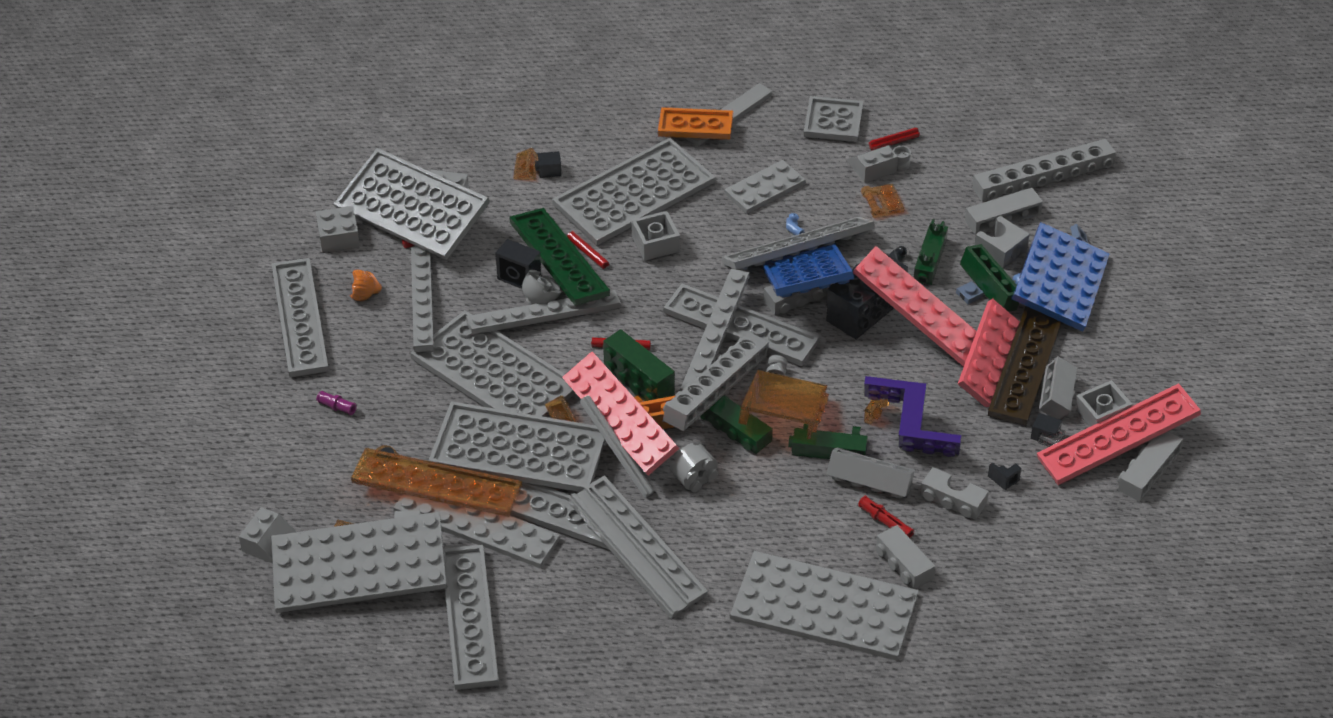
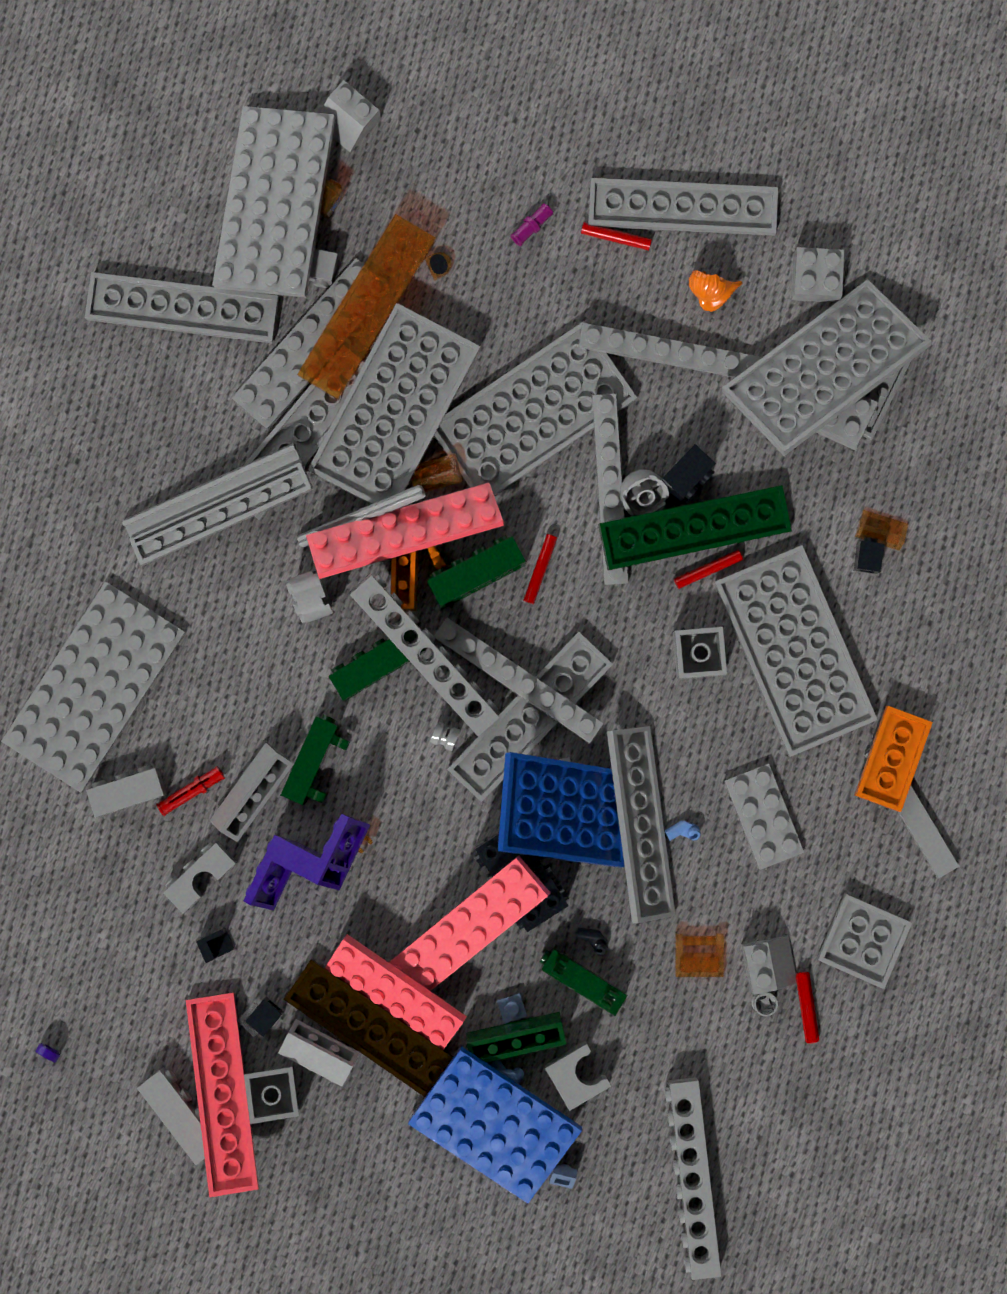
camera: 100 degrees right, 40 degrees up
(333, 352) = (616, 236): none -> red piece
(785, 399) = (372, 724): clear orange panel -> none
(1011, 207) = (634, 1098): light grey brick -> none
(1143, 561) = (47, 1052): none -> dark purple tile

